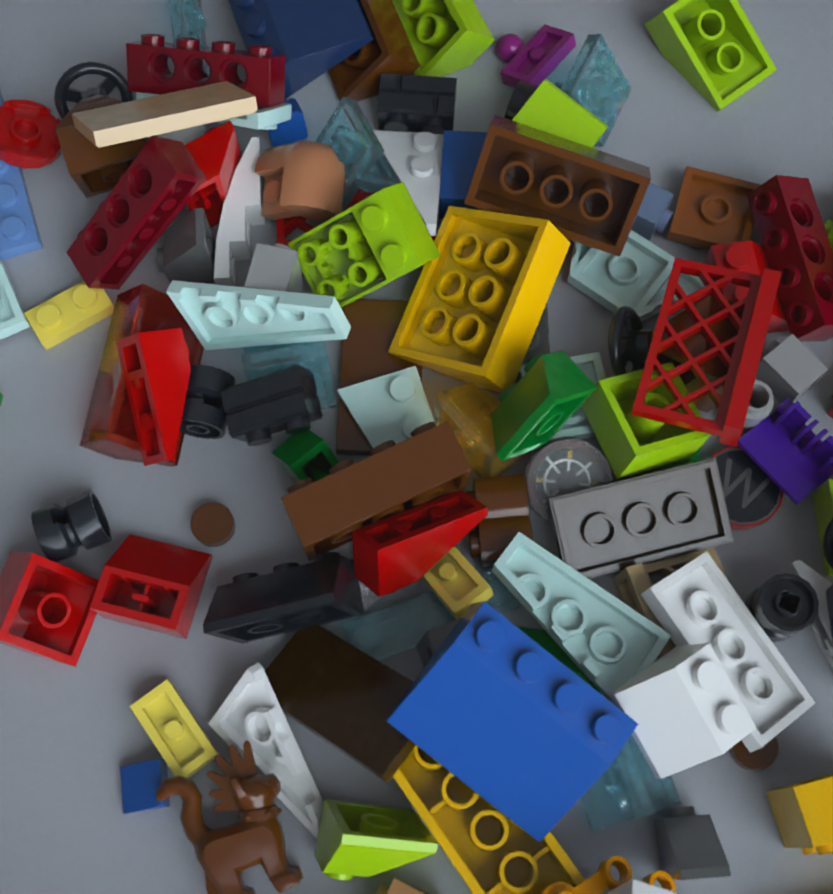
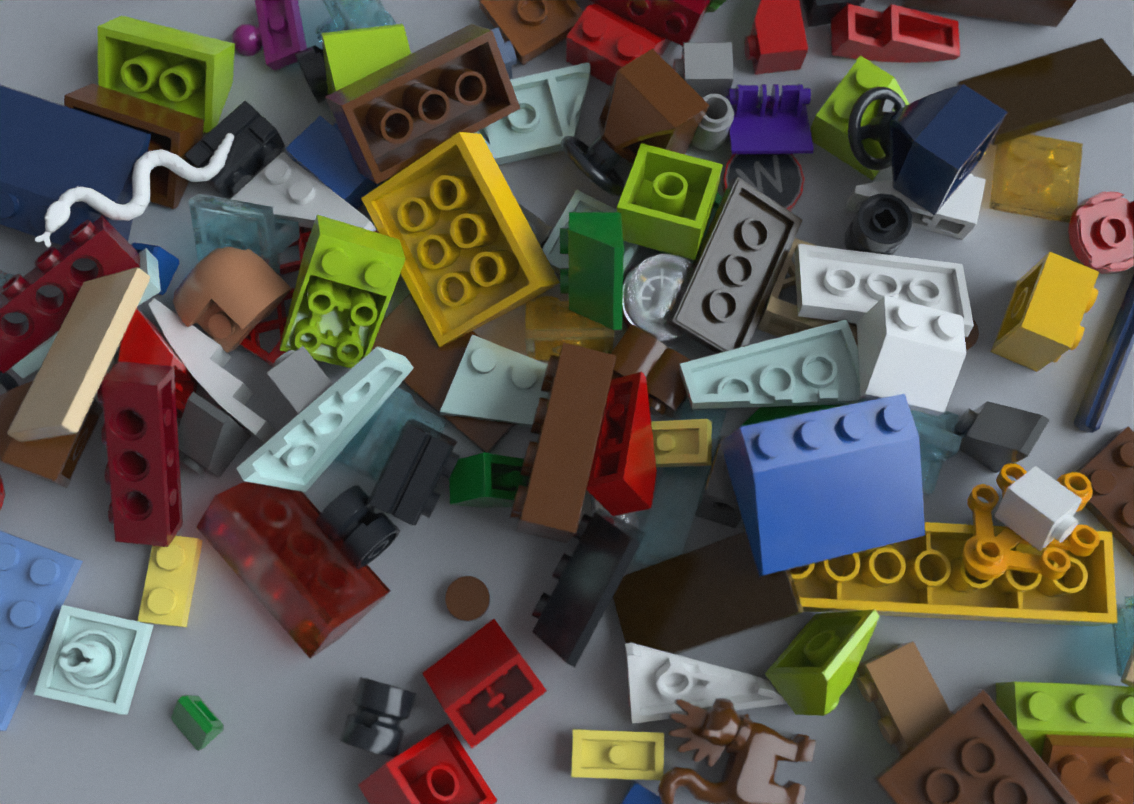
camera: 55 degrees left, 5 degrees up
(157, 384) = (322, 554): red slope -> none
(262, 26) = (59, 211): none -> white animal
(742, 364) = (694, 92): red fence -> none

